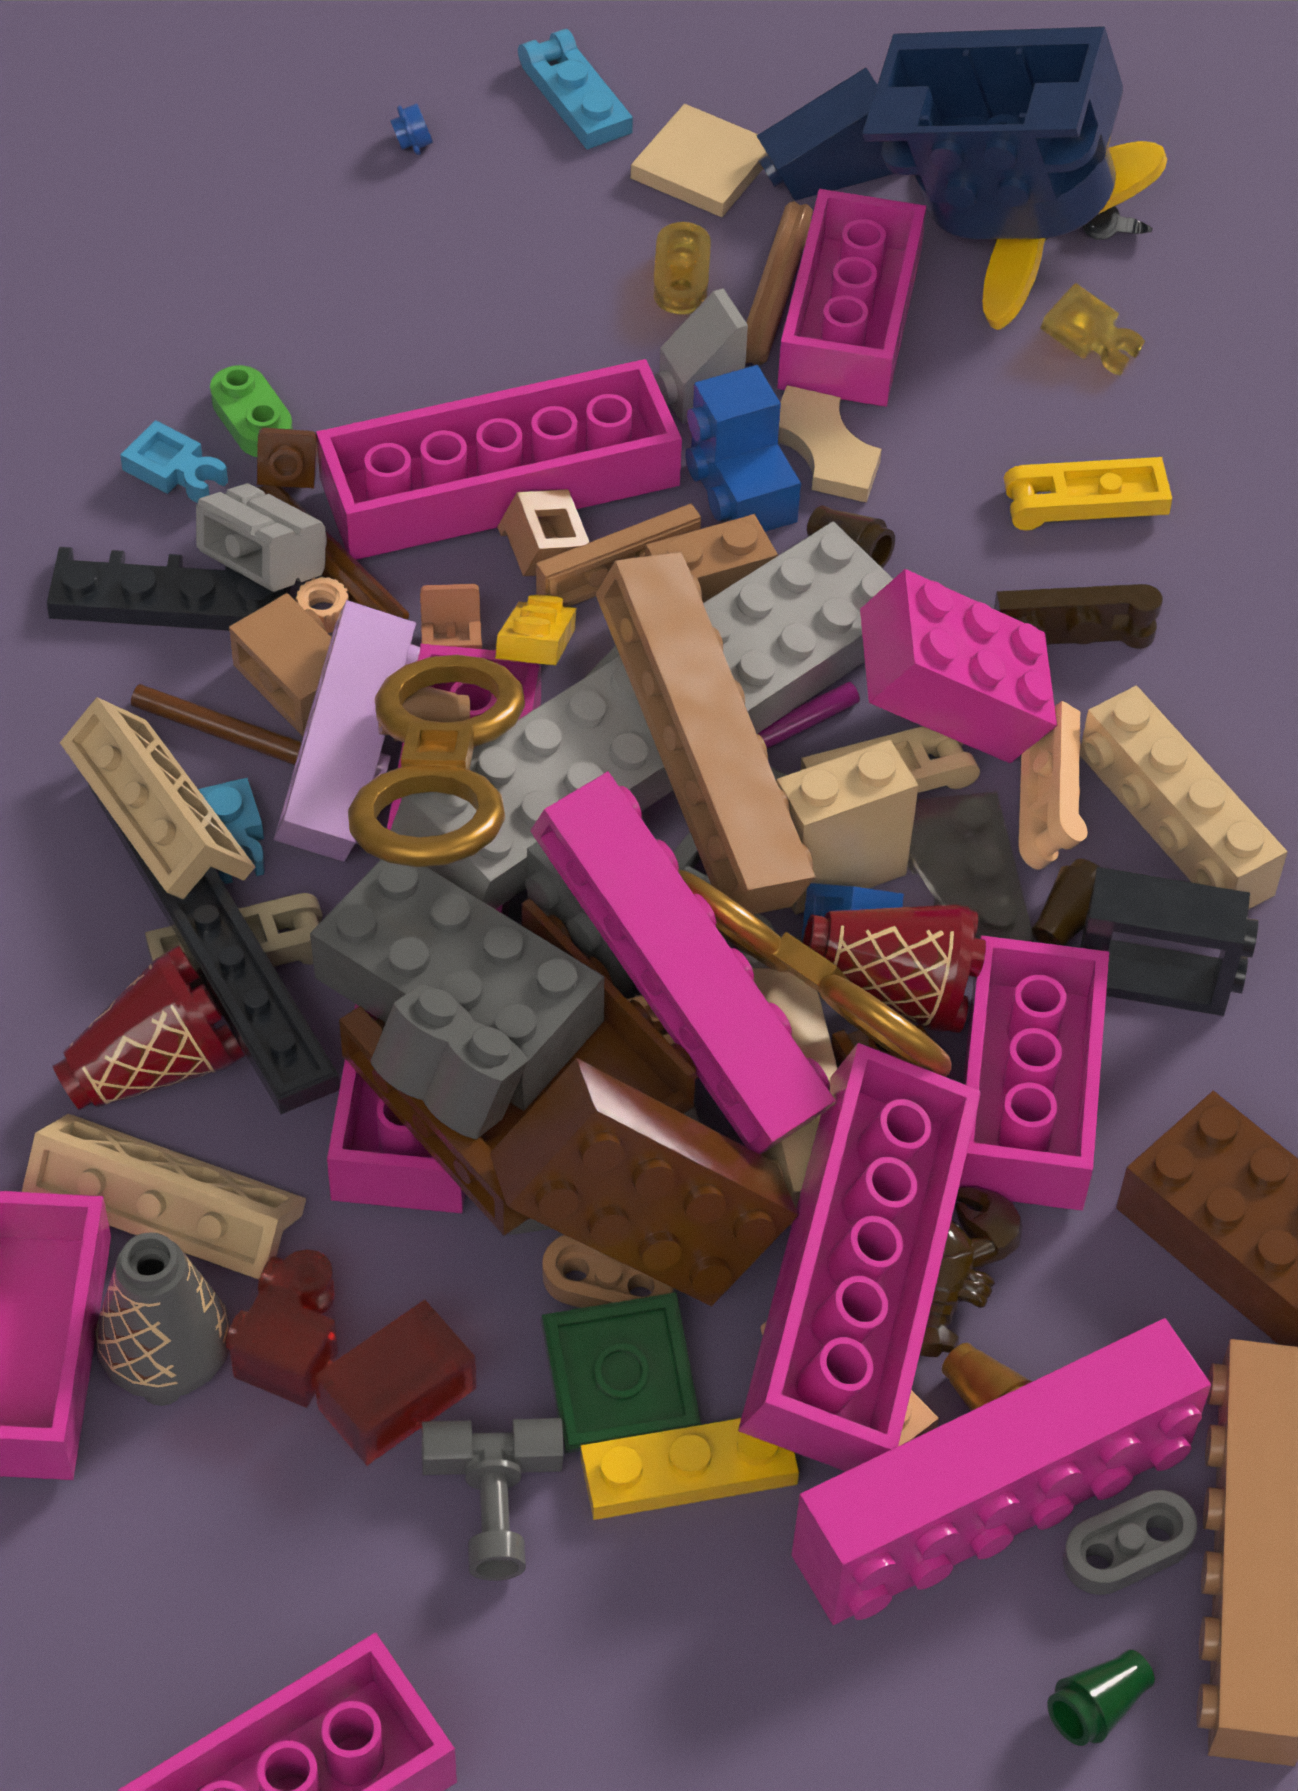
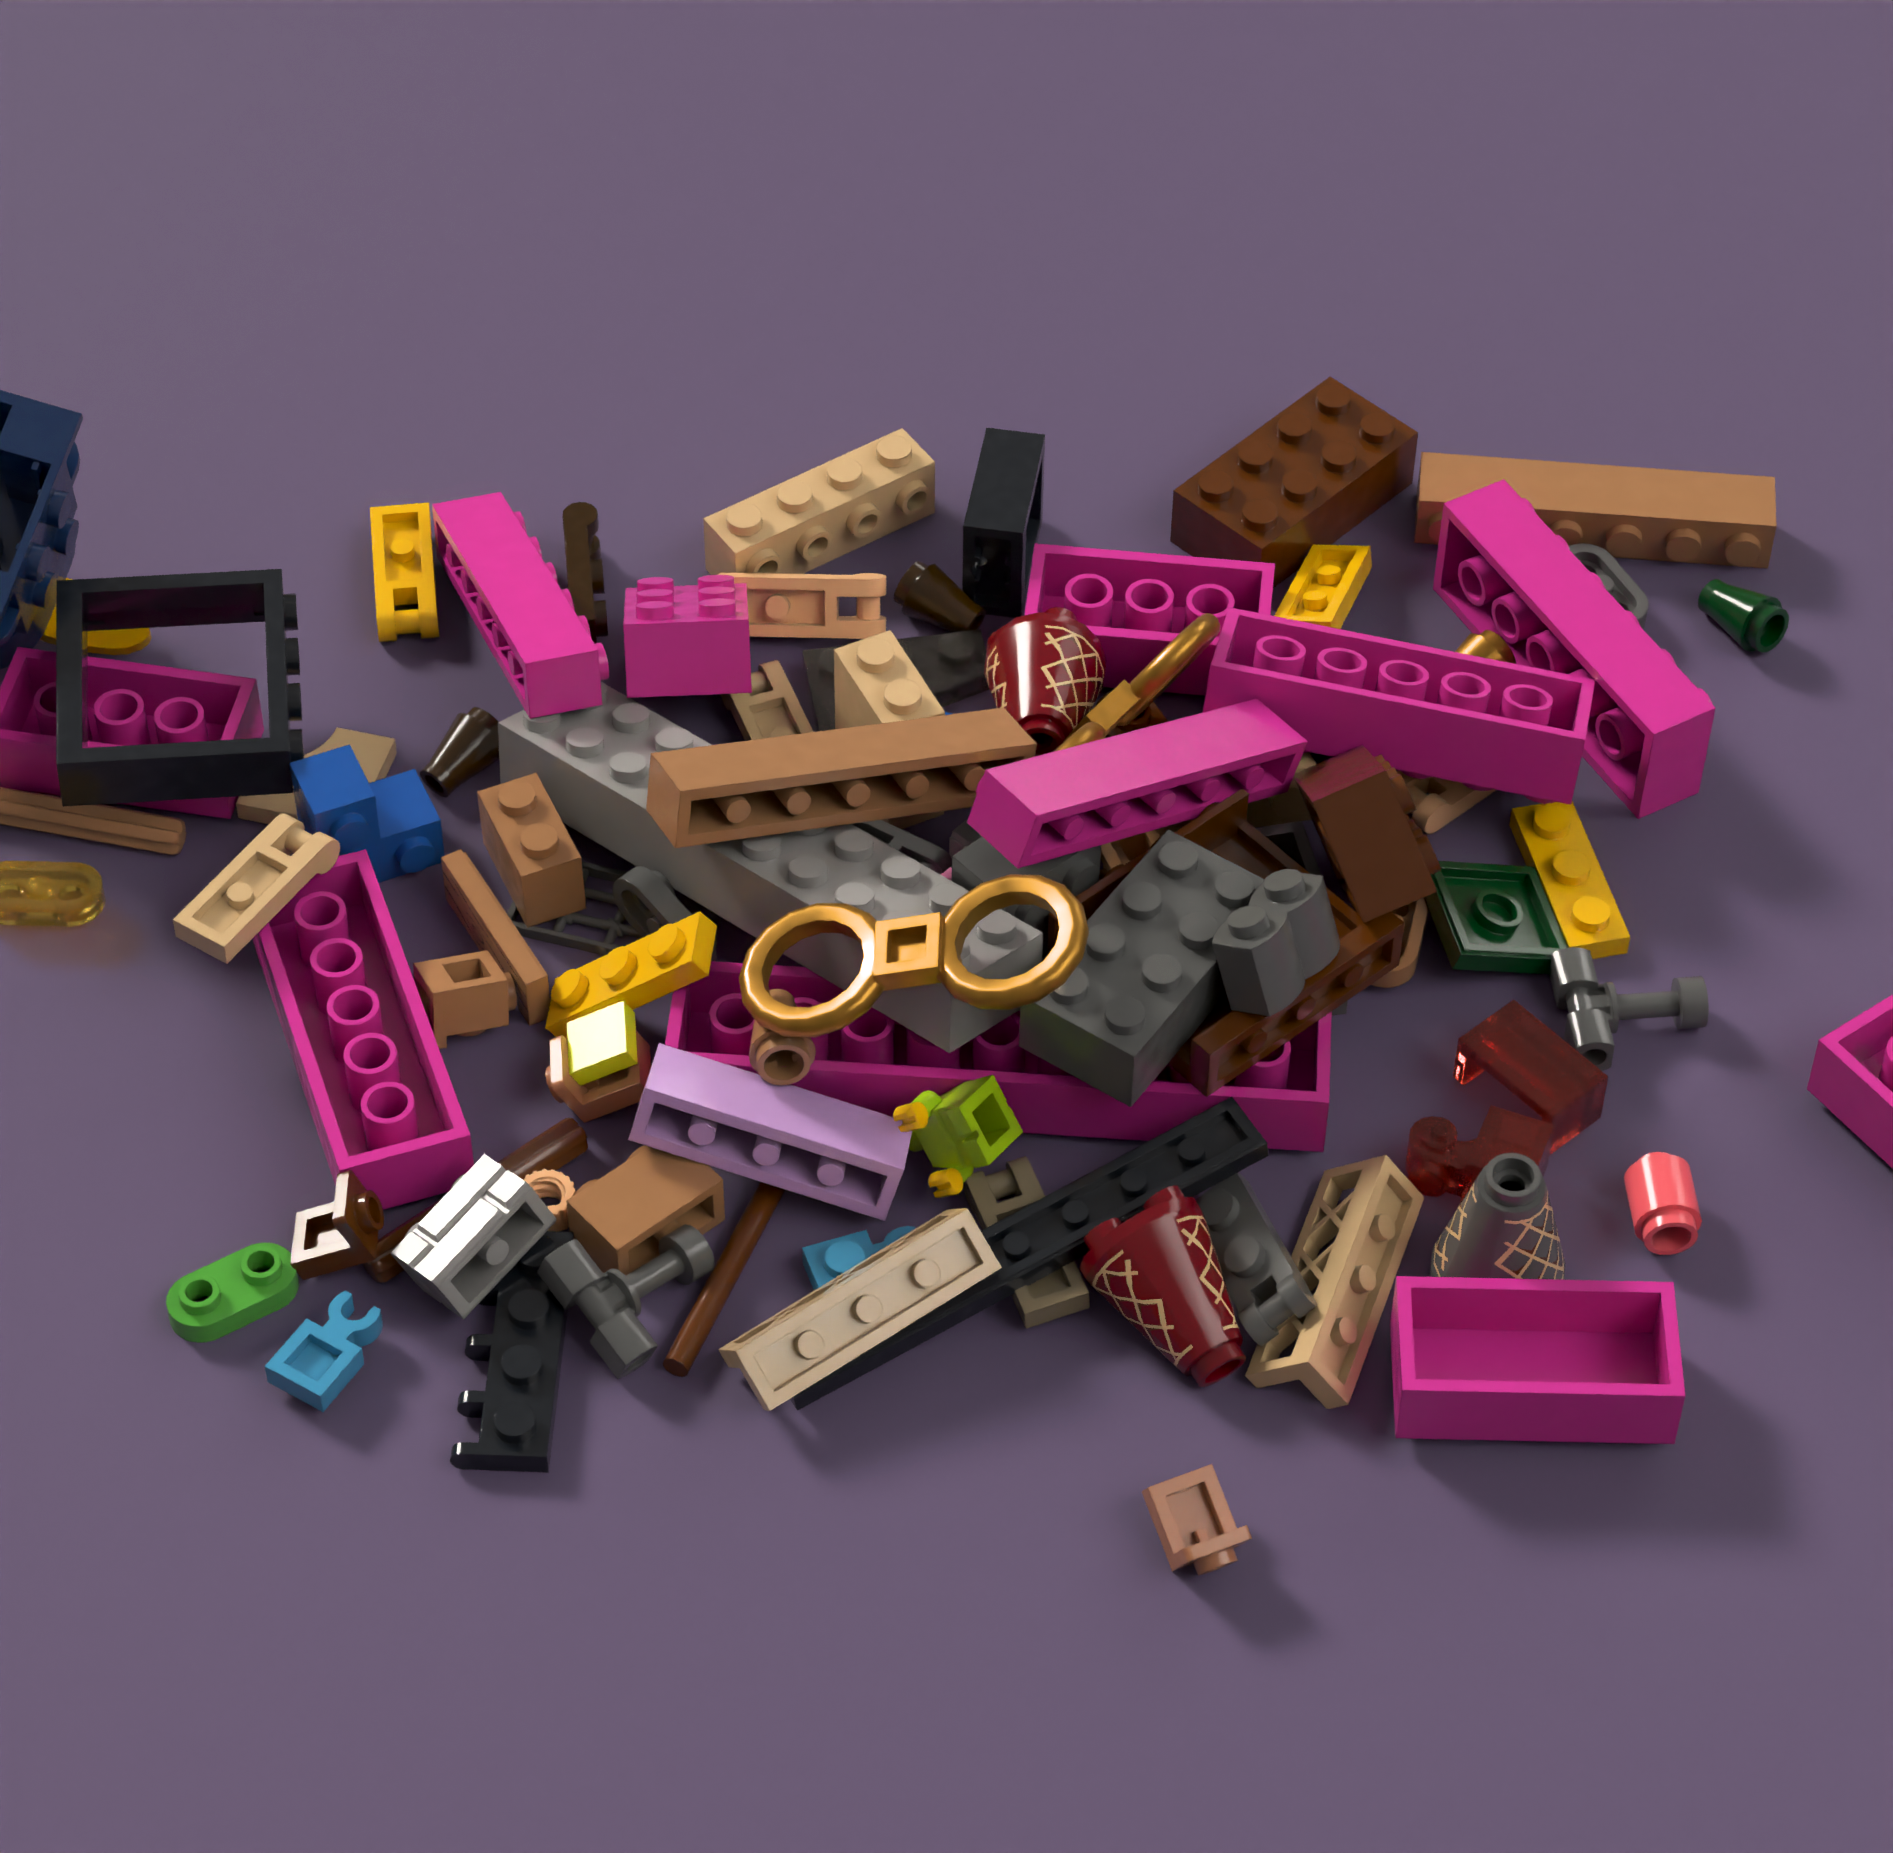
camera: 90 degrees left, 5 degrees down
(180, 1112) = (1253, 1259): none -> dark grey plate
(196, 639) = (613, 1299): none -> dark grey bar
(221, 1489) = (1663, 1203): none -> coral brick
(330, 863) = (959, 1130): none -> lime piece
(470, 621) = (602, 1043): none -> tile
(621, 356) = (255, 887): none -> tan plate
(701, 348) = (208, 828): light grey slope -> none
(852, 227) = (182, 768): none -> black window
(998, 535) = (519, 605): none -> dark pink brick
(1086, 1239) = (1327, 584): none -> yellow plate
(1088, 324) = (168, 555): clear yellow plate -> none

